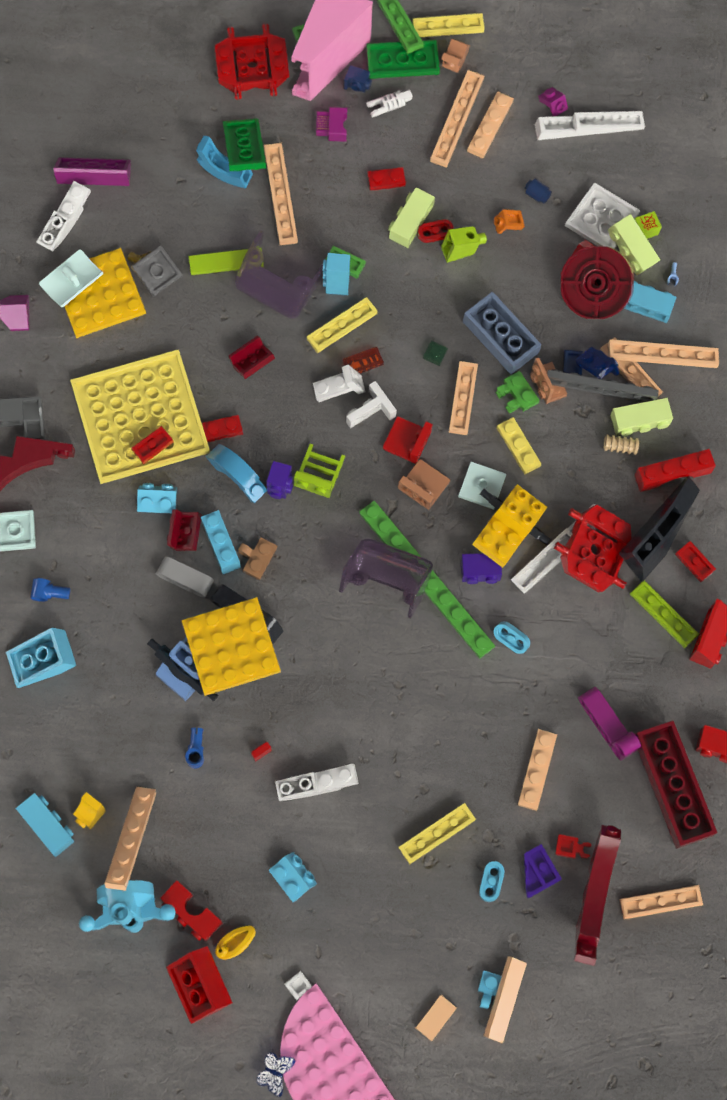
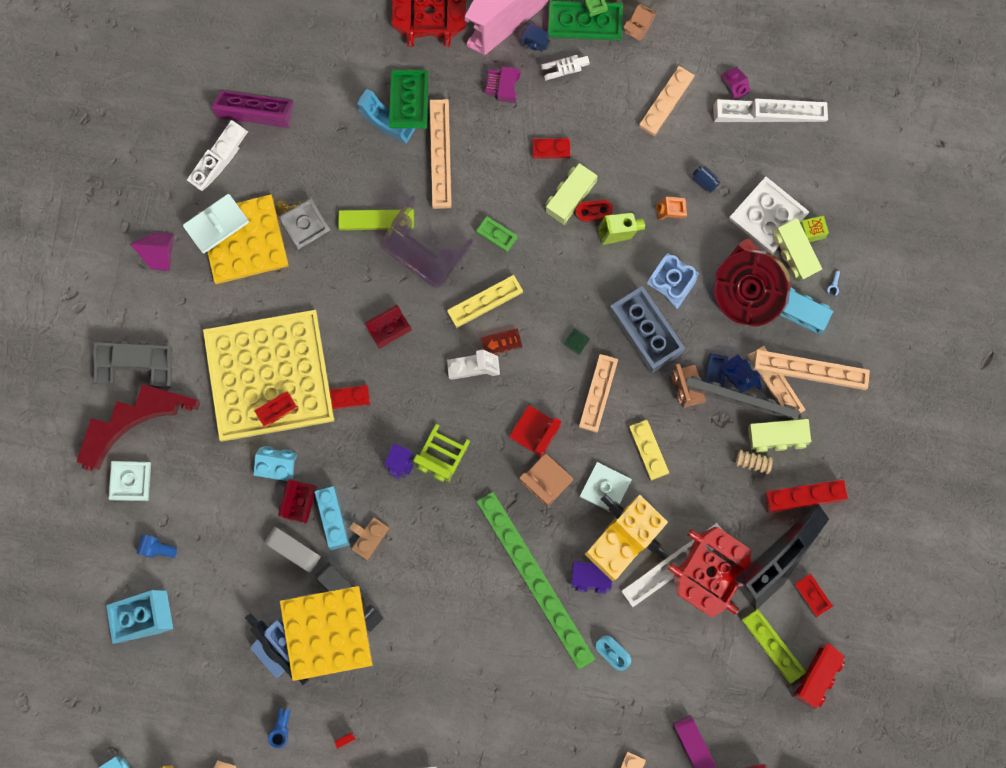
camera: 15 degrees right, 5 degrees up
(238, 470) = (357, 446): dark azure arch -> none
(336, 273) = (485, 249): medium azure brick -> none
(372, 406) = (502, 392): white bracket -> none
(389, 567) = (499, 565): clear purple windscreen -> none
(457, 118) = (633, 91): light nougat plate -> none
(521, 284) = (673, 279): none -> light blue piece
(521, 391) = (659, 392): bright green plate -> none

